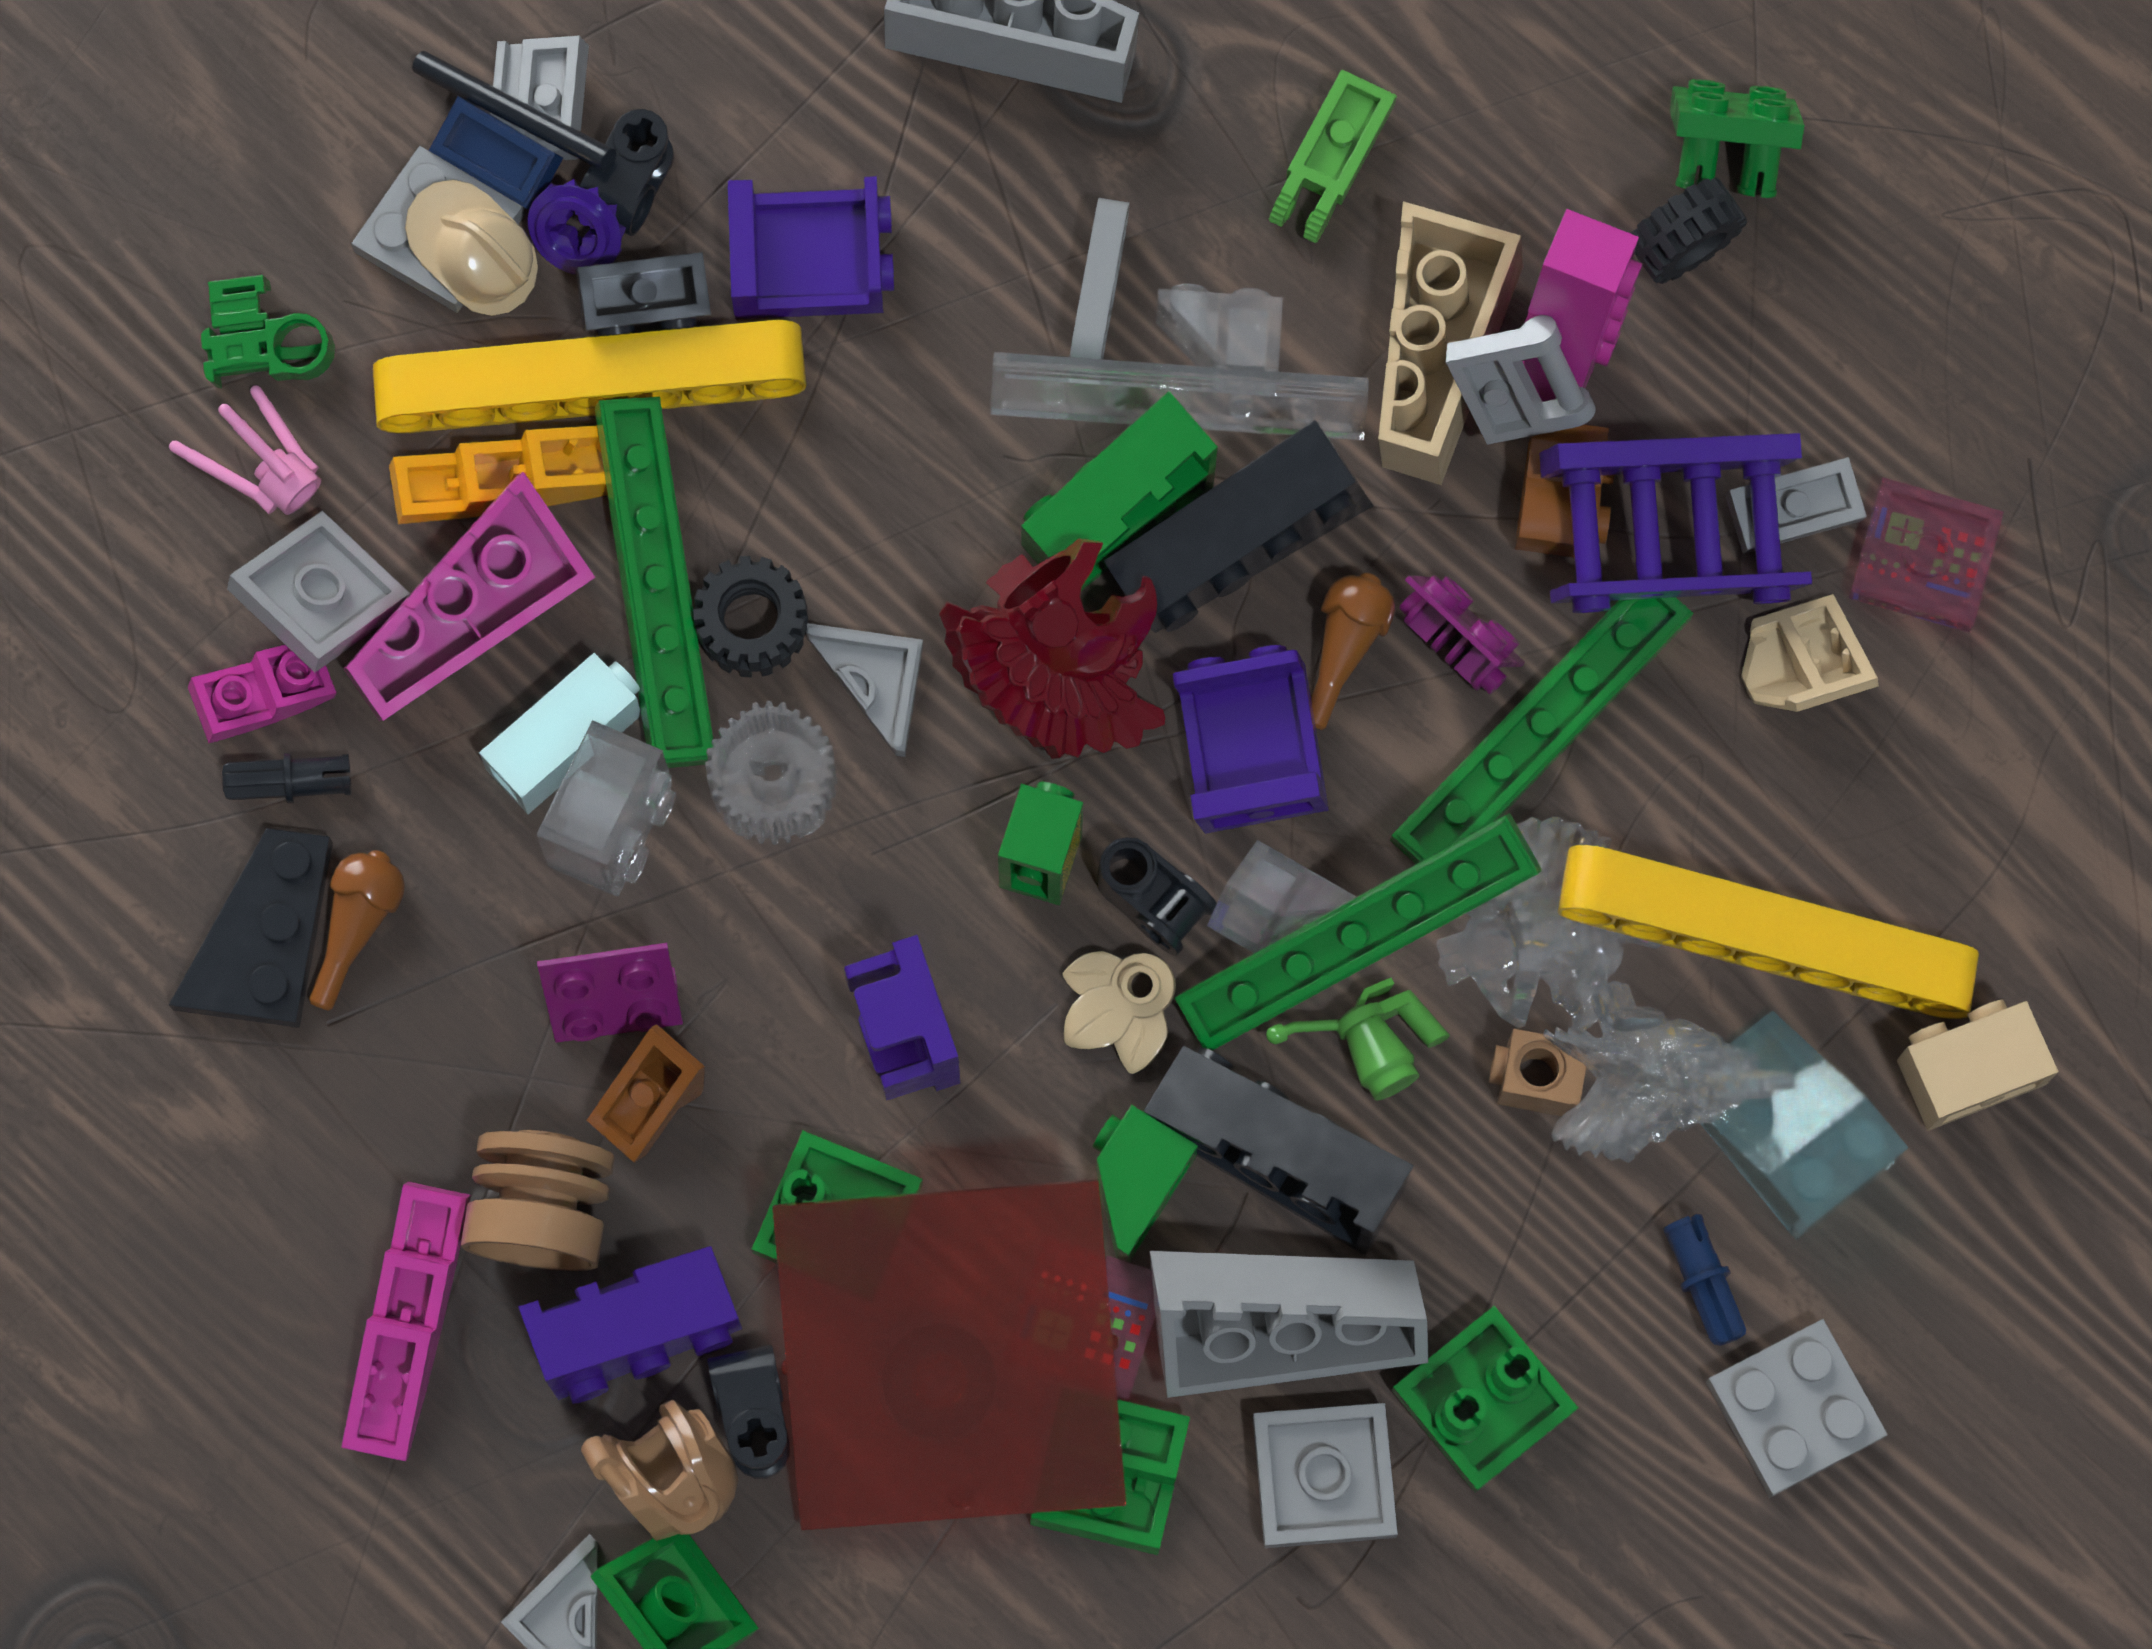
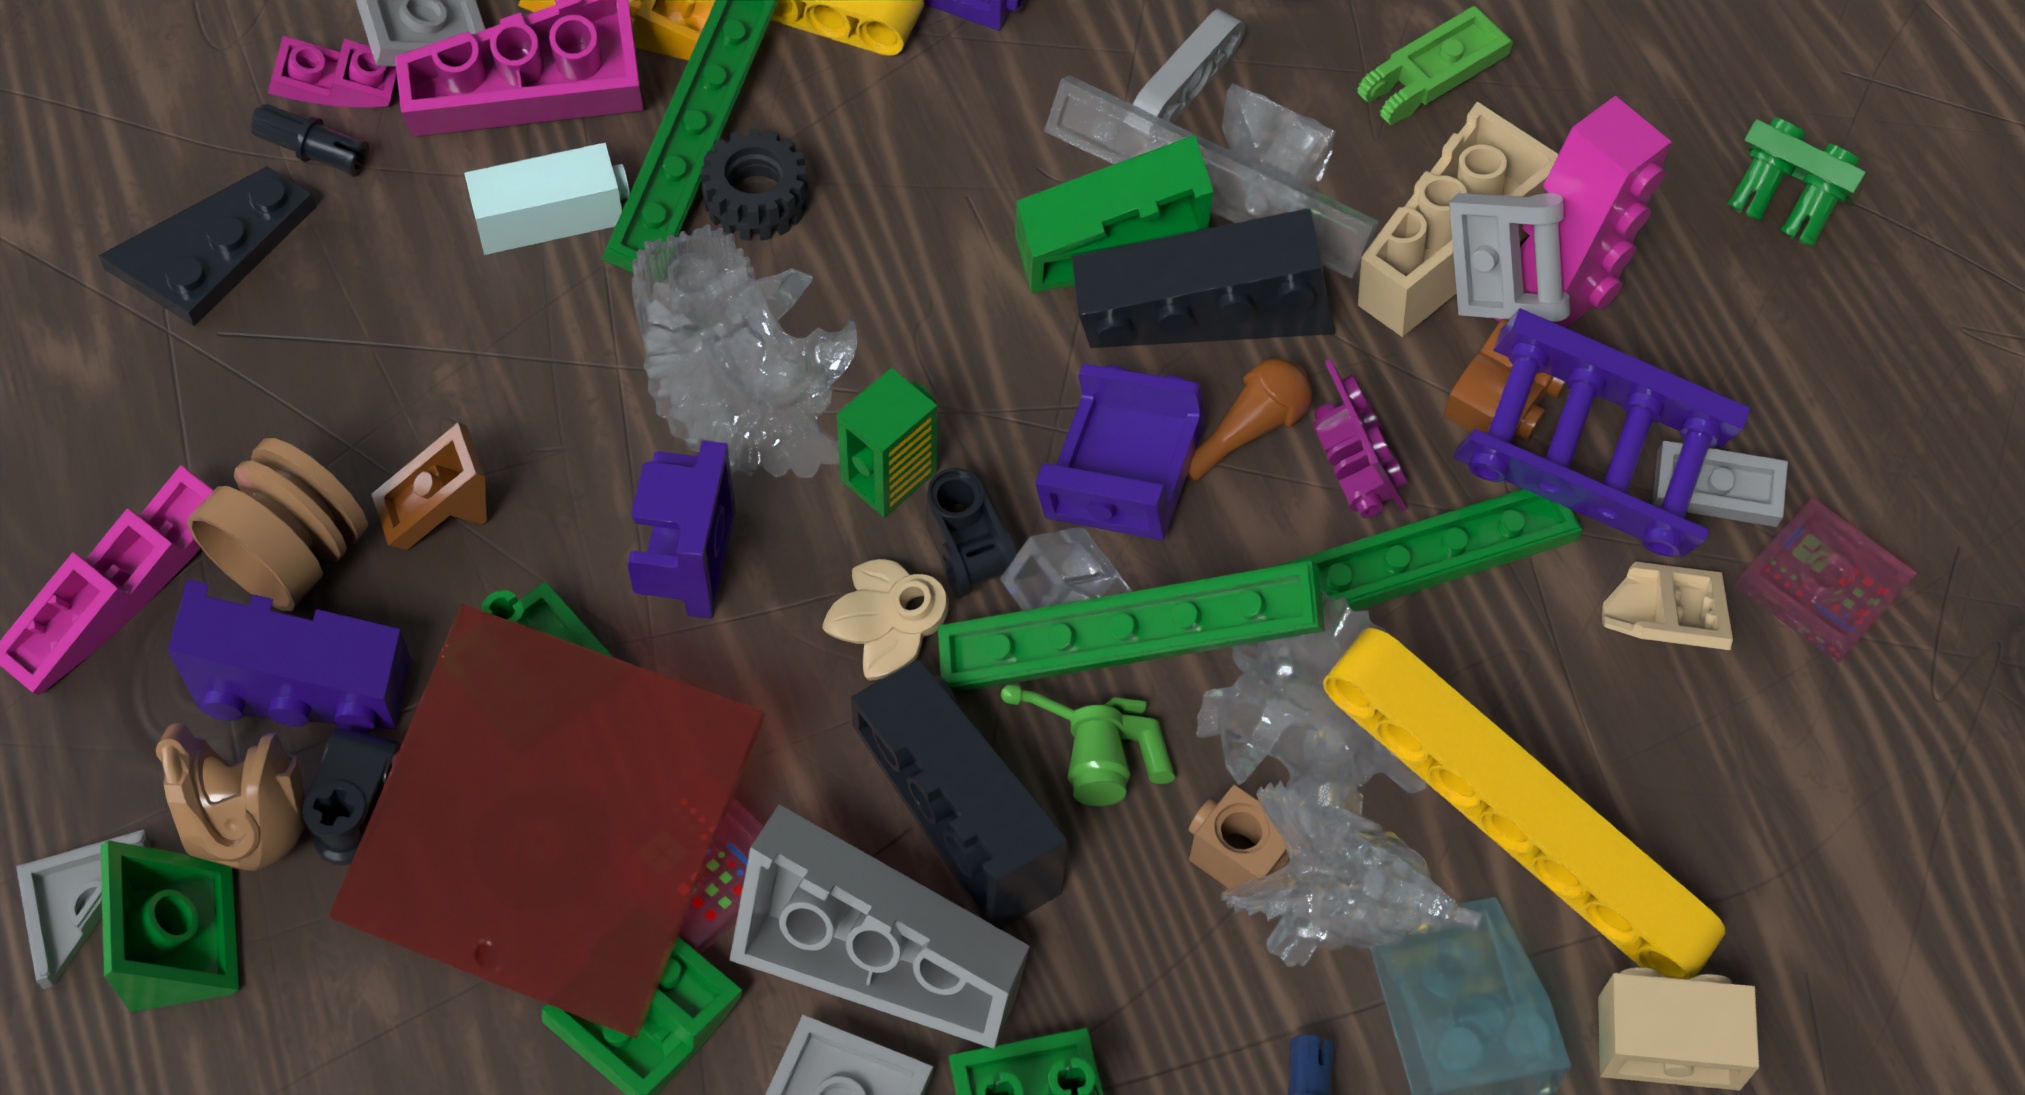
camera: 25 degrees right, 15 degrees down
(364, 893) = (307, 243): dark orange piece -> none
(607, 809) = (537, 256): clear brick -> none
(610, 992) = (450, 383): magenta hinge -> none
(876, 673) = (840, 271): light grey tile -> none
(876, 846) = (743, 377): none -> clear piece
(1051, 664) = (981, 312): dark red piece -> none
(1138, 1174) = (820, 756): green slope -> none
(1688, 230) = (1720, 228): black tyre -> none

